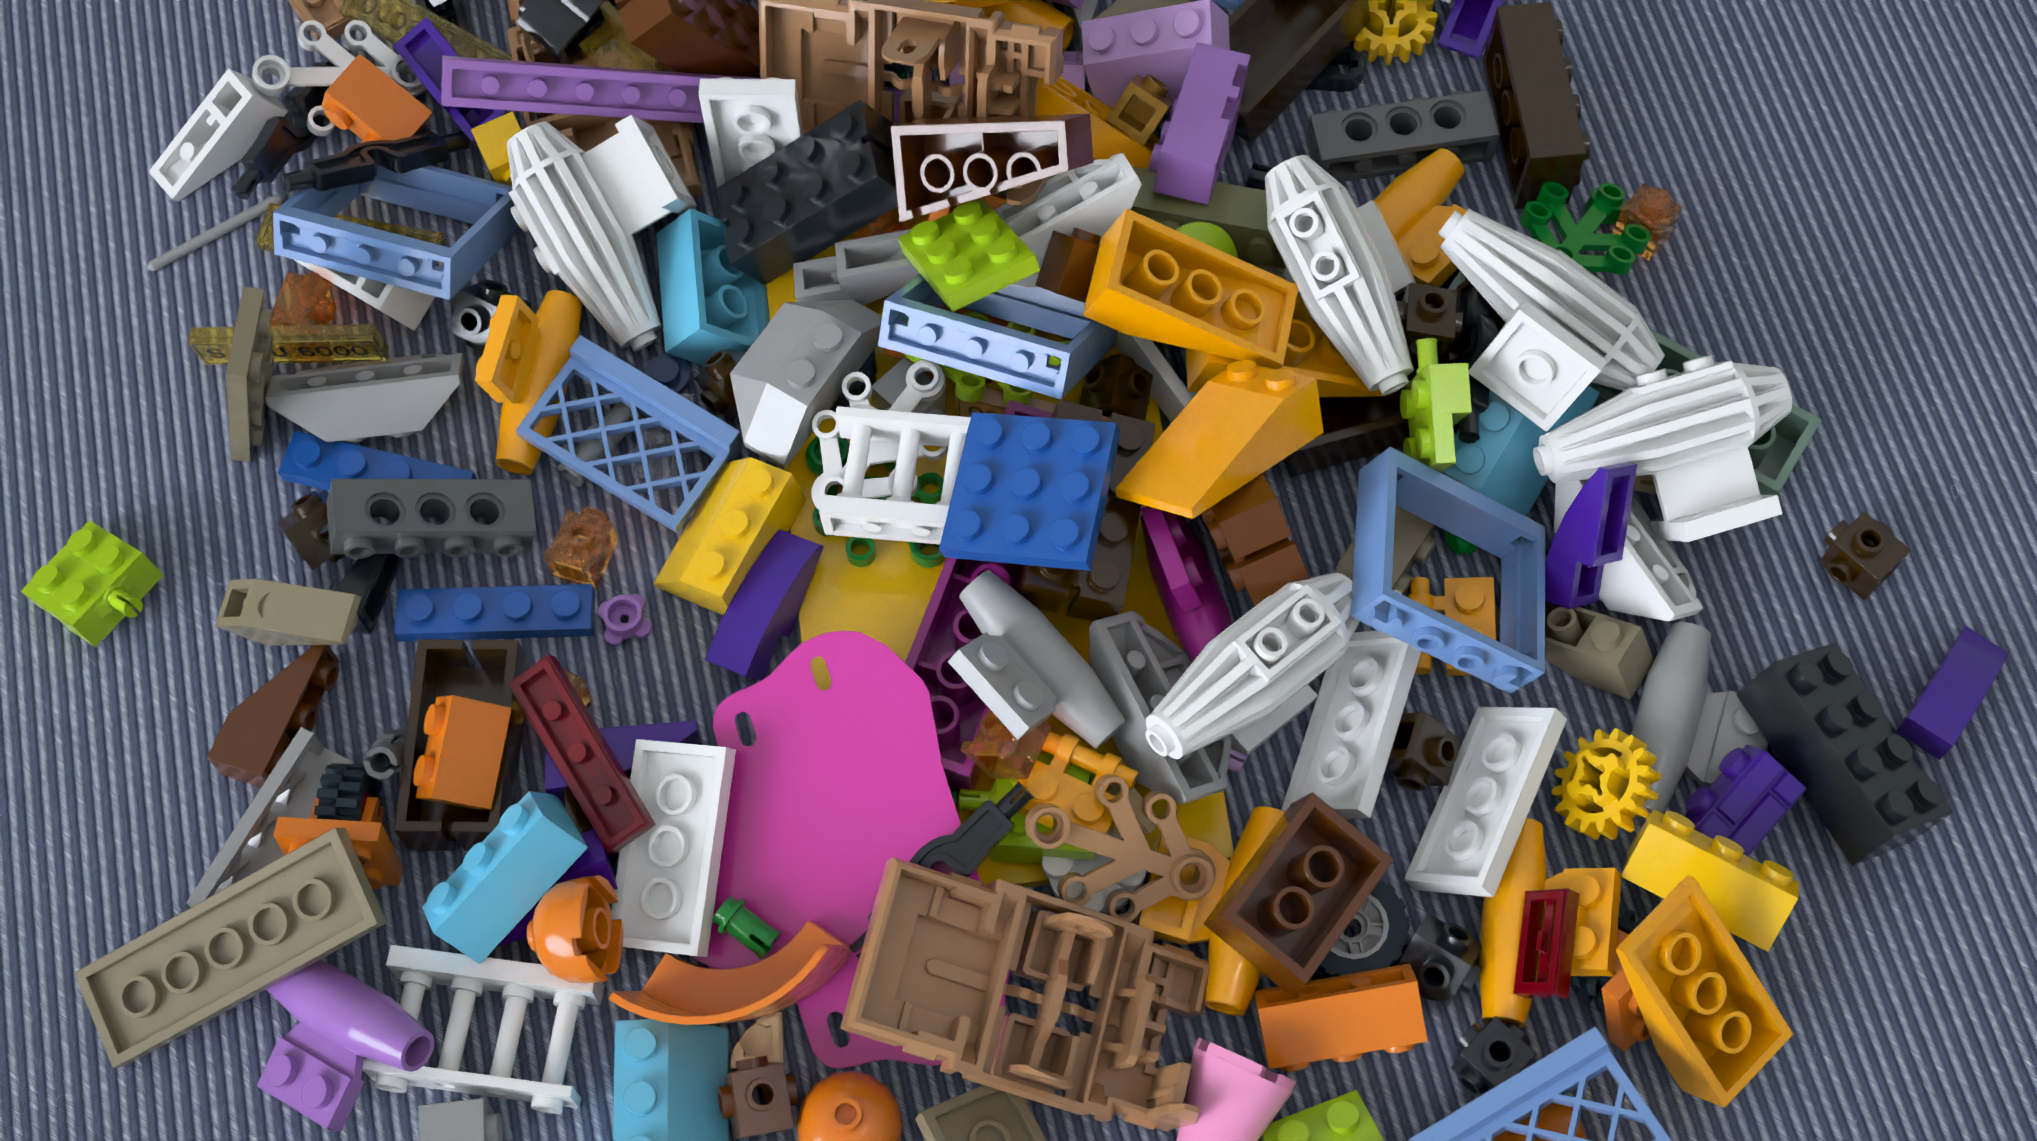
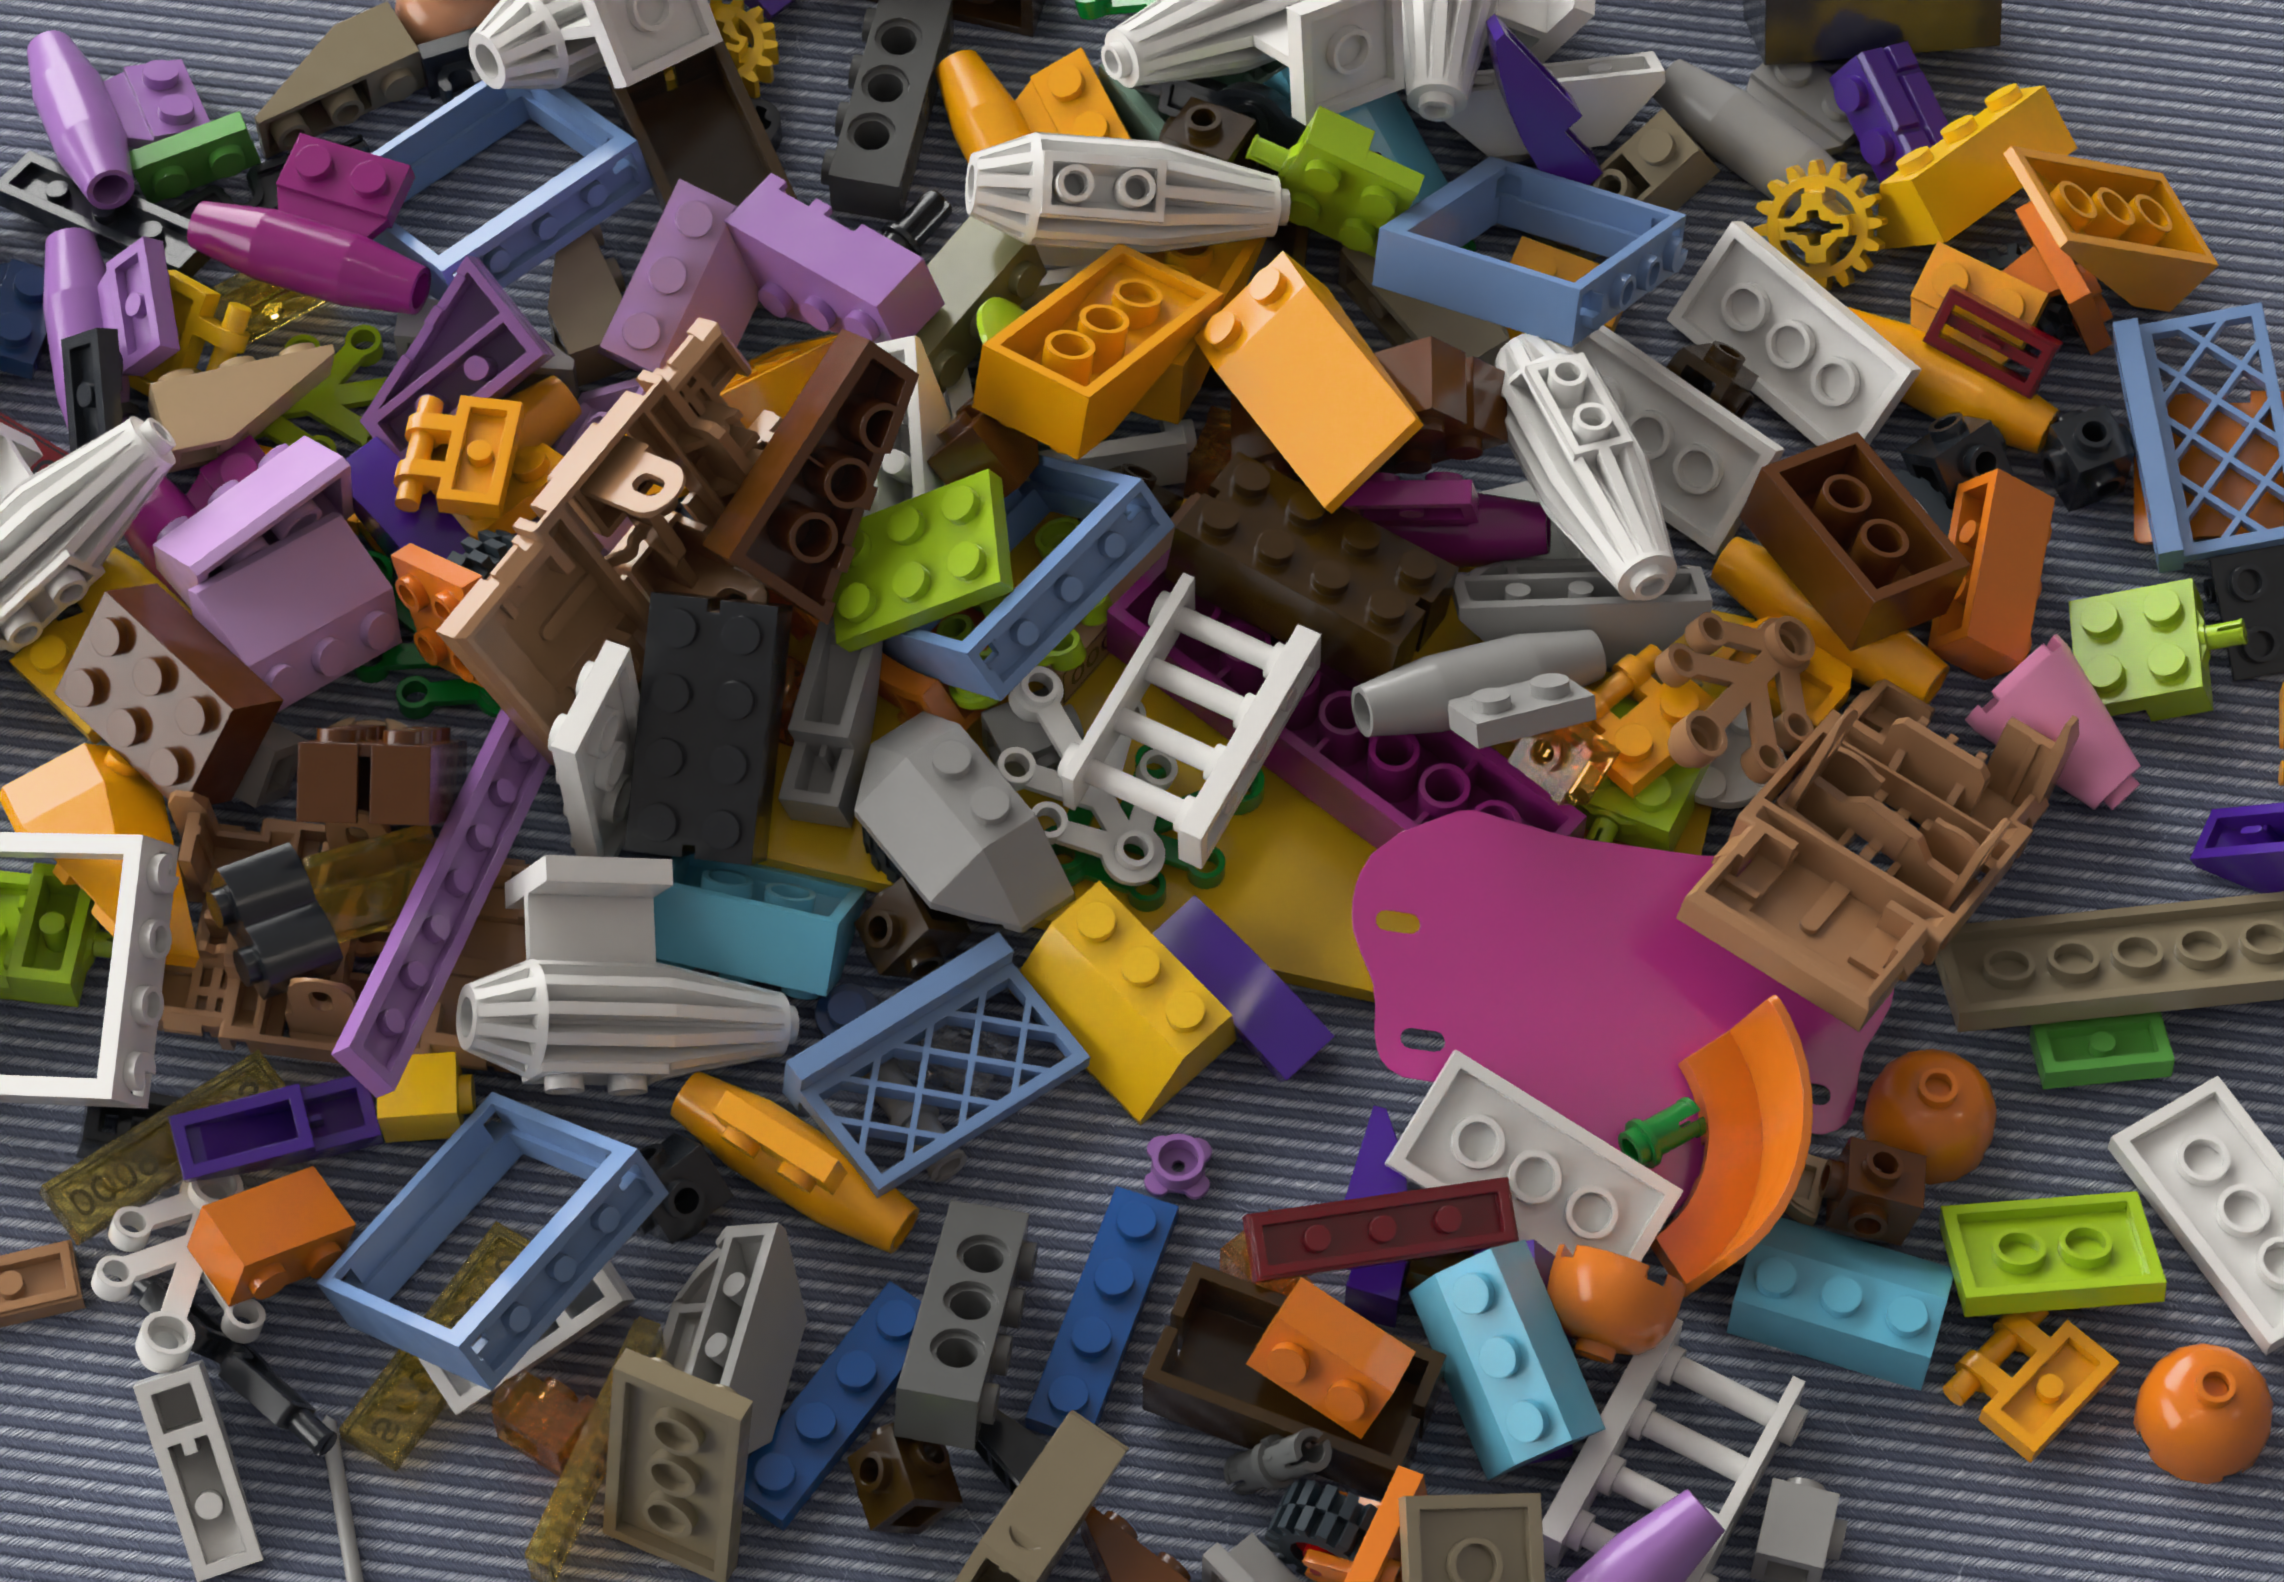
camera: 70 degrees left, 5 degrees down
(360, 161) = (378, 1246): black piece -> none
(584, 560) = (1064, 1199): clear orange brick -> none
(971, 841) = (1676, 853): black piece -> none
(1030, 491) = (1290, 592): blue plate -> none
(1141, 107) = (764, 326): pearl gold brick -> none

